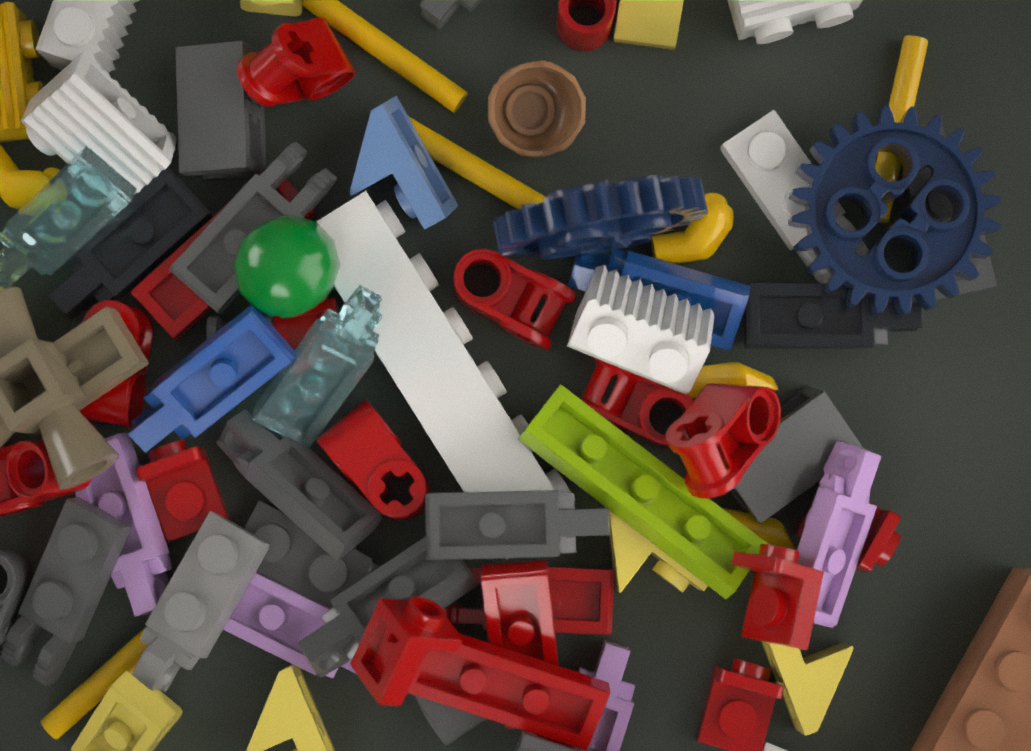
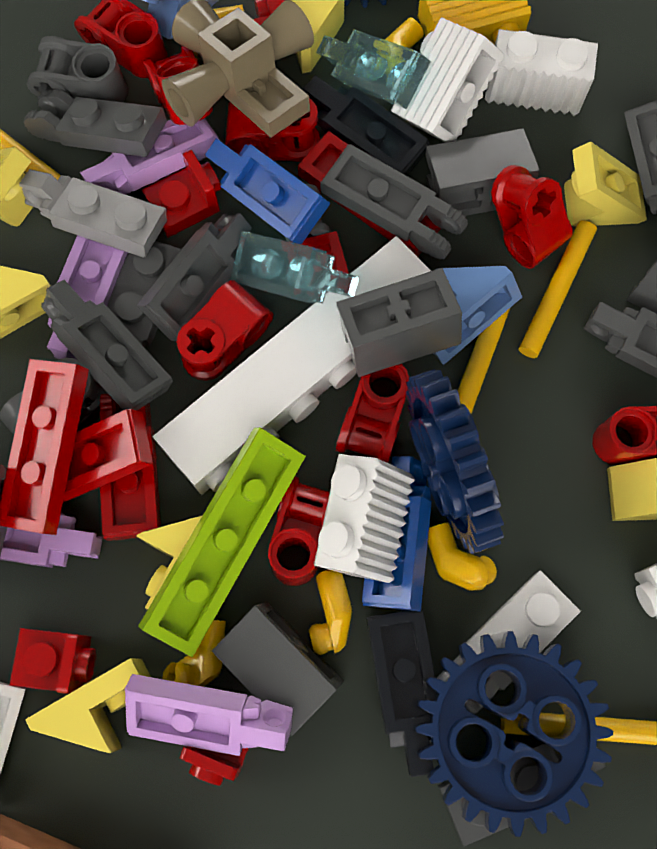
camera: 90 degrees right, 10 degrees down
(286, 266) = (365, 224): green hair -> none
(396, 645) = (69, 346): red bracket -> none
(424, 246) = (401, 322): none -> dark grey hinge
(507, 524) = (178, 429): dark grey hinge -> none
(536, 109) = (536, 406): medium nougat hair -> none
(723, 435) = (284, 599): red piece -> none
(780, 597) = (140, 674): red bracket -> none

